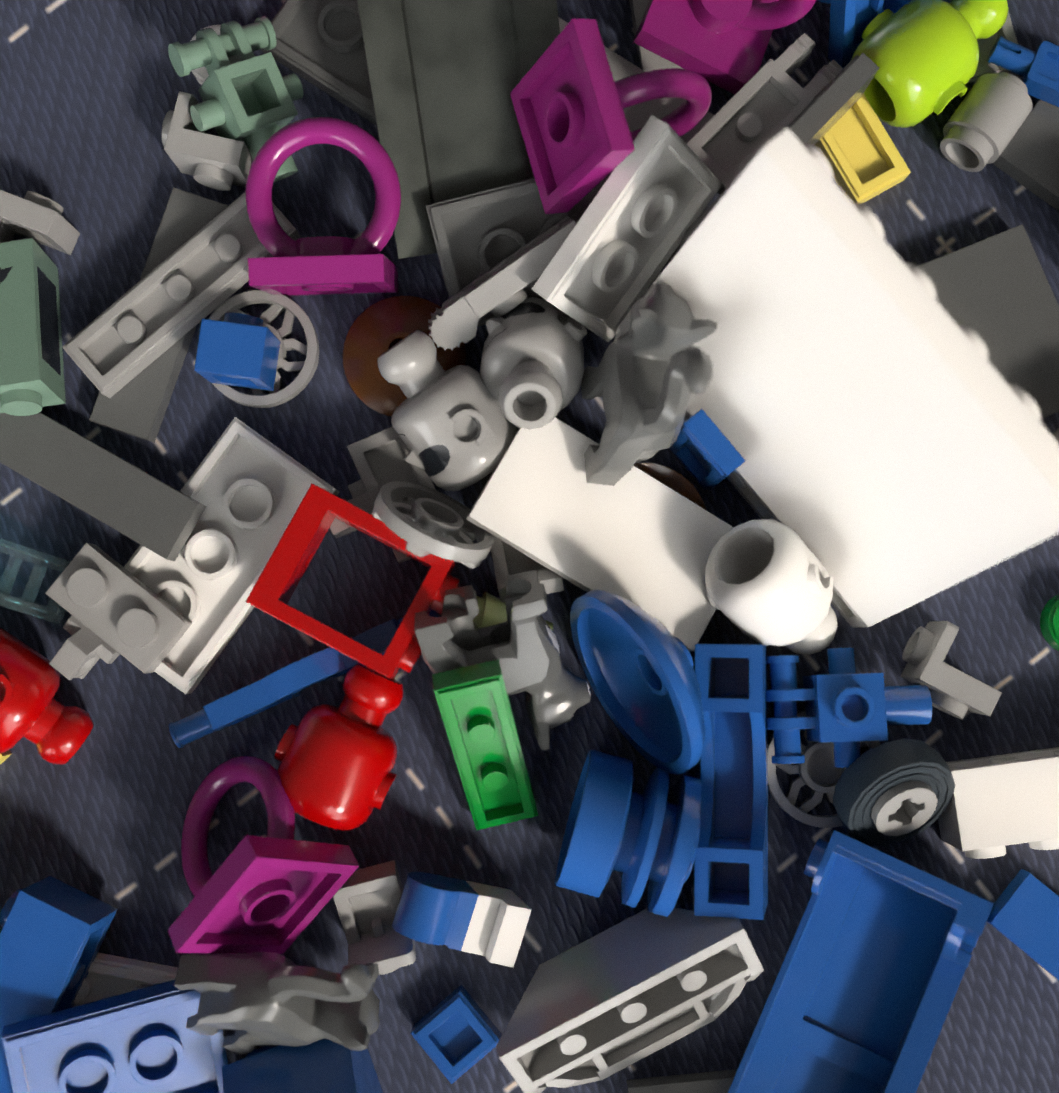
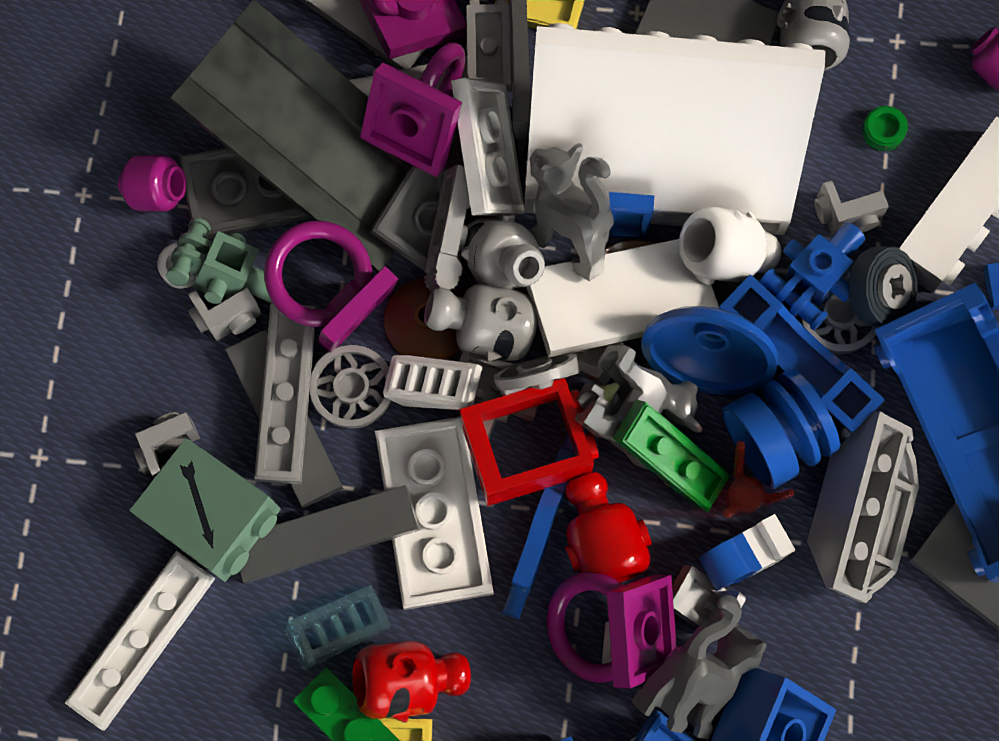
camera: 50 degrees left, 10 degrees down
(111, 616) = (417, 586): light grey hinge -> none
(237, 352) = (350, 391): blue plate -> none
(330, 424) = (407, 375): none -> white slope
(456, 1034) = (803, 623): blue tile -> none
(528, 857) = (747, 493): none -> clear red plant

